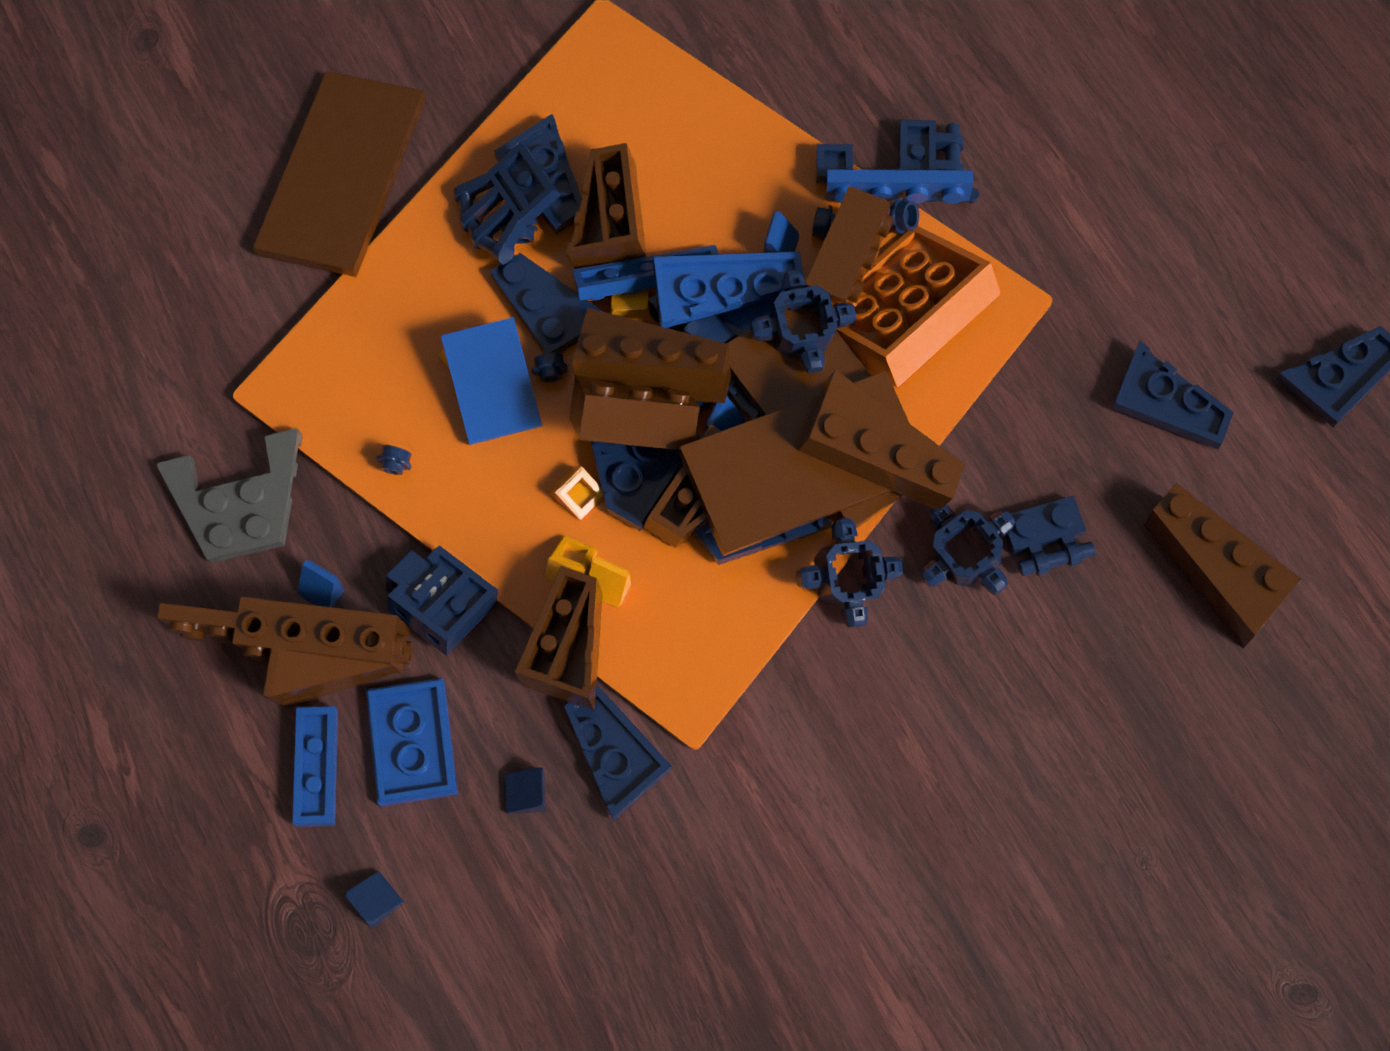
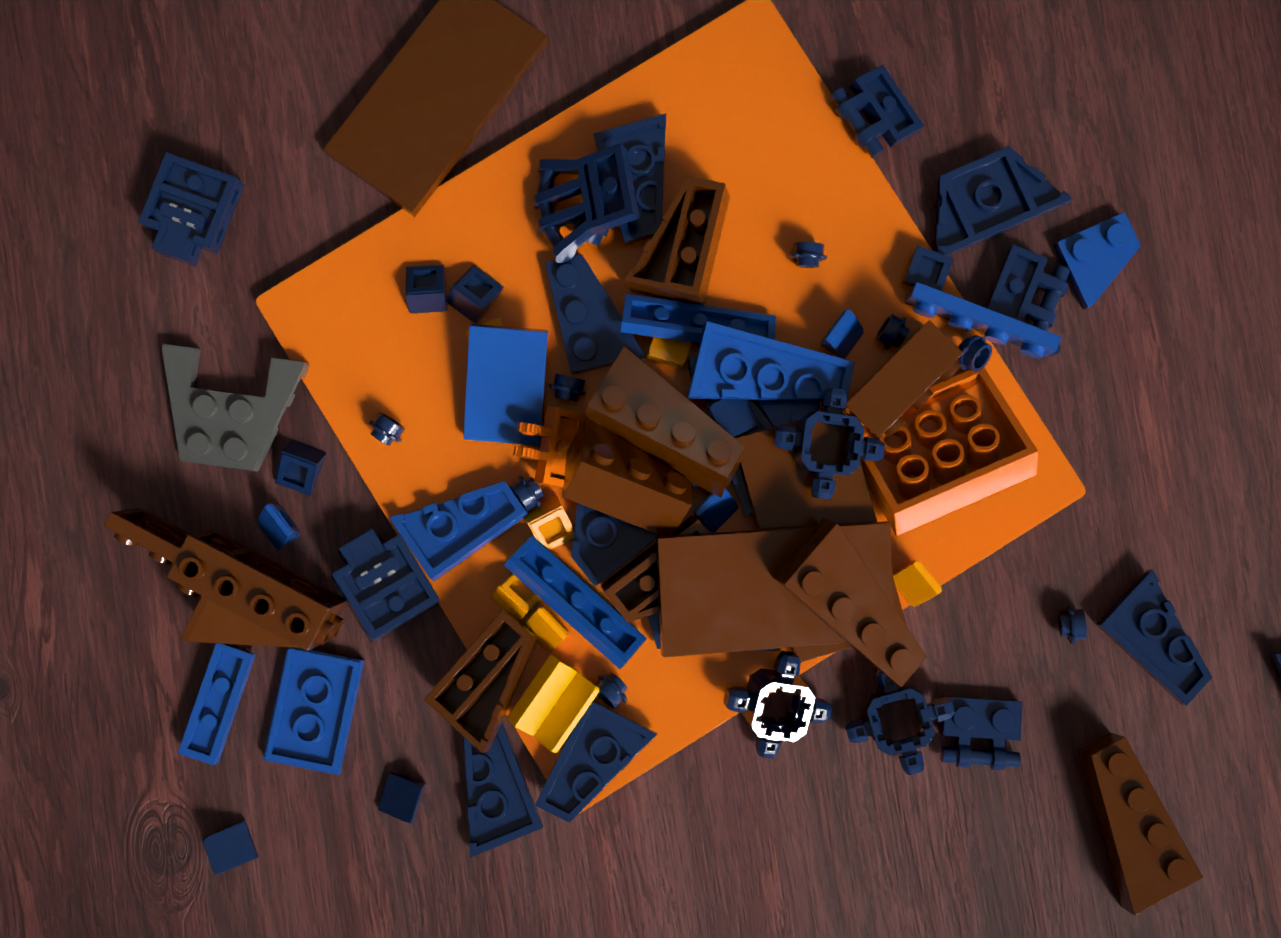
camera: 15 degrees right, 15 degrees up
(145, 338) = (189, 208): none -> dark blue piece
(323, 529) = (299, 467): none -> dark blue slope
(389, 332) = (426, 289): none -> dark blue slope
(433, 320) = (474, 294): none -> dark blue slope
(492, 524) = (457, 528): none -> blue wing
(545, 470) = (527, 492): none -> dark blue plate
(555, 407) = (557, 435): none -> orange hinge
(626, 547) = (575, 602): none -> blue plate
(638, 643) = (553, 703): none -> yellow panel
(688, 615) = (611, 690): none -> dark blue plate
(693, 683) = (590, 759): none -> dark blue wing
(723, 185) = (808, 254): none -> dark blue plate
(743, 49) = (885, 106): none -> dark blue plate
(866, 92) = (990, 199): none -> dark blue wing
(934, 420) = (916, 583): none -> light orange slope
(978, 107) = (1097, 256): none -> blue wing
(1090, 414) = (1072, 624): none -> dark blue plate

